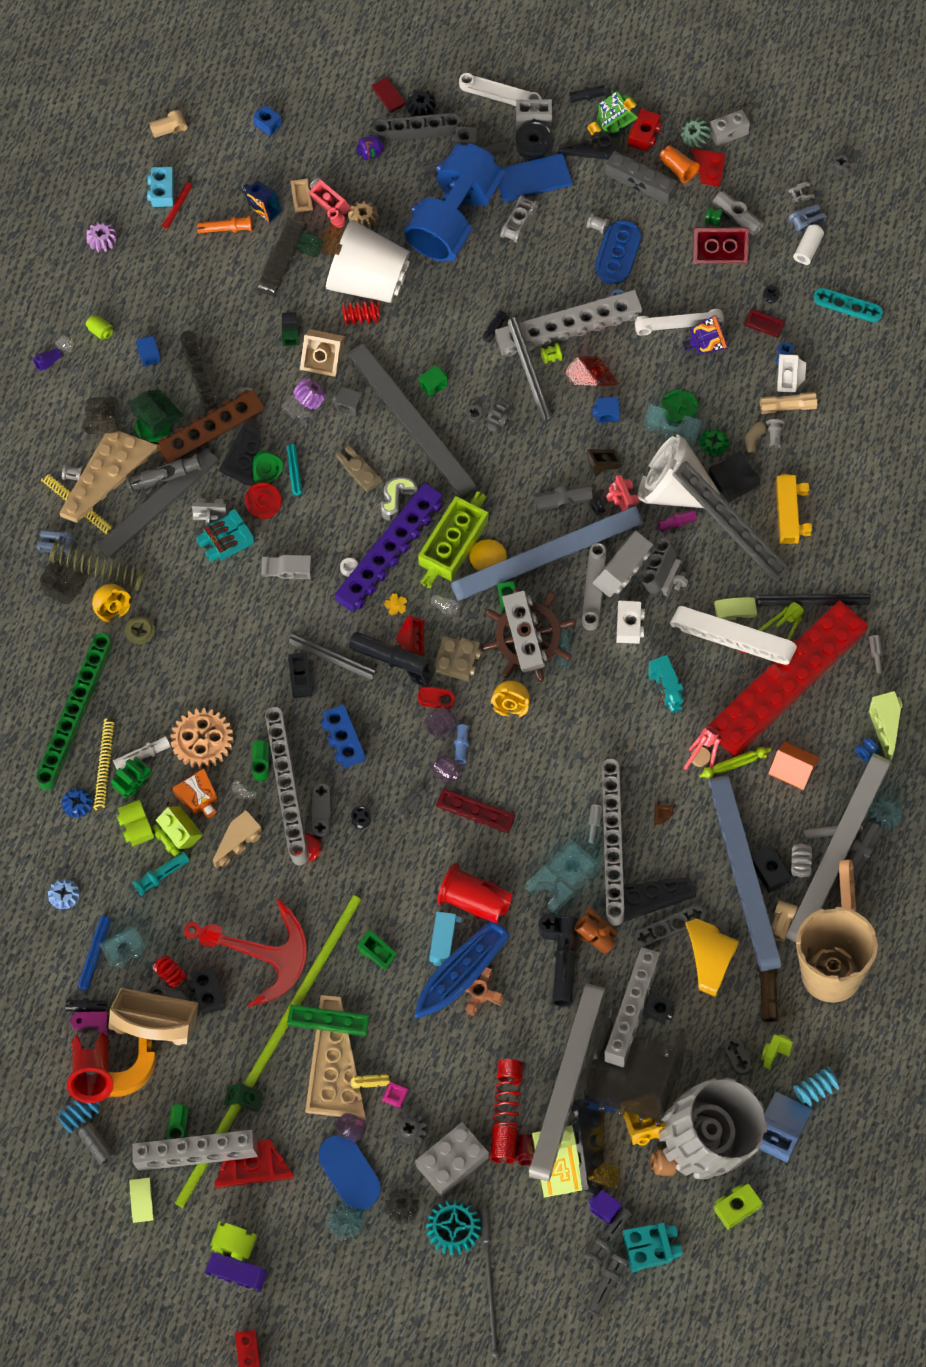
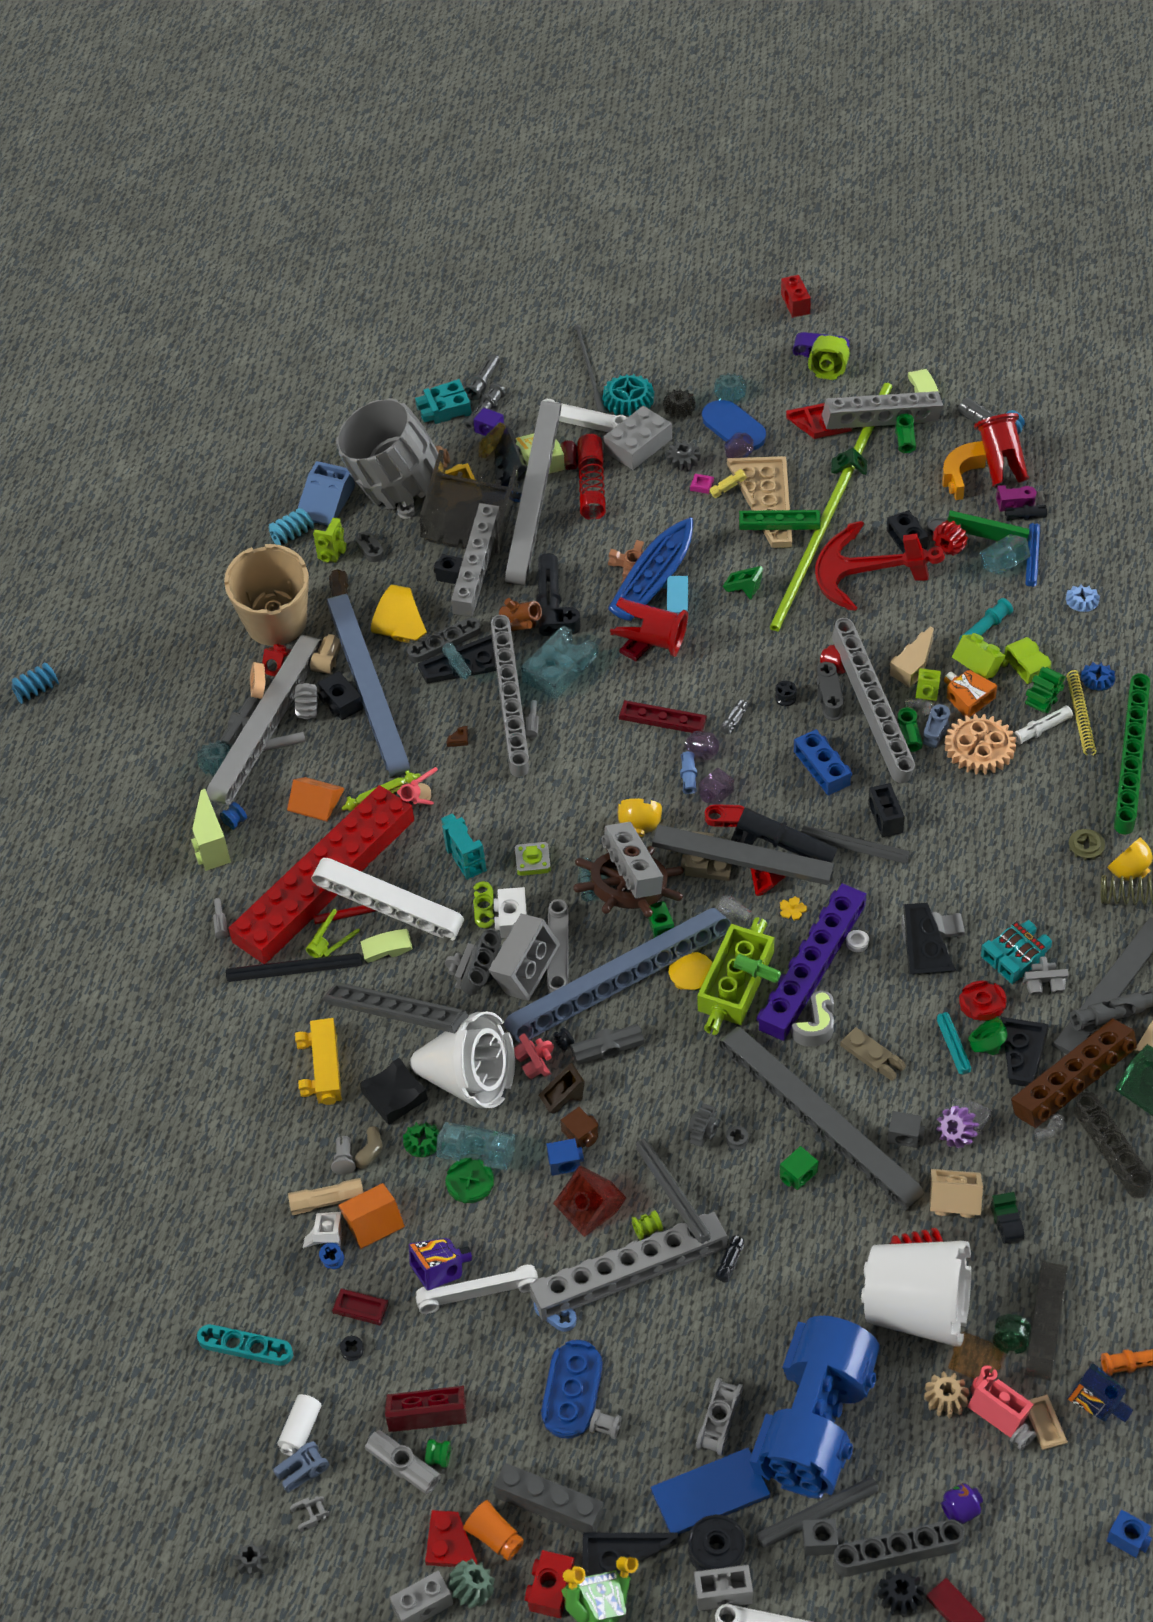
camera: 175 degrees right, 15 degrees down
(131, 978) = (986, 528): none -> green tile
(153, 1016) = (932, 501): tan piece -> none
(226, 809) = (928, 684): none -> lime brick
(236, 759) = (936, 725): none -> sand blue piece
(297, 544) = (923, 941): none -> black wing
(430, 640) = (742, 854): none -> dark grey tile
(437, 522) = (756, 968): none -> bright green axle
(503, 1204) = (588, 418): none -> white piece
(592, 430) = (580, 1127): none -> reddish brown brick
(607, 677) = (532, 858): none -> piece
(652, 631) = (486, 896): none -> lime piece
(659, 885) = (456, 660): none -> clear light blue axle
(755, 383) = (372, 1215): none -> orange slope

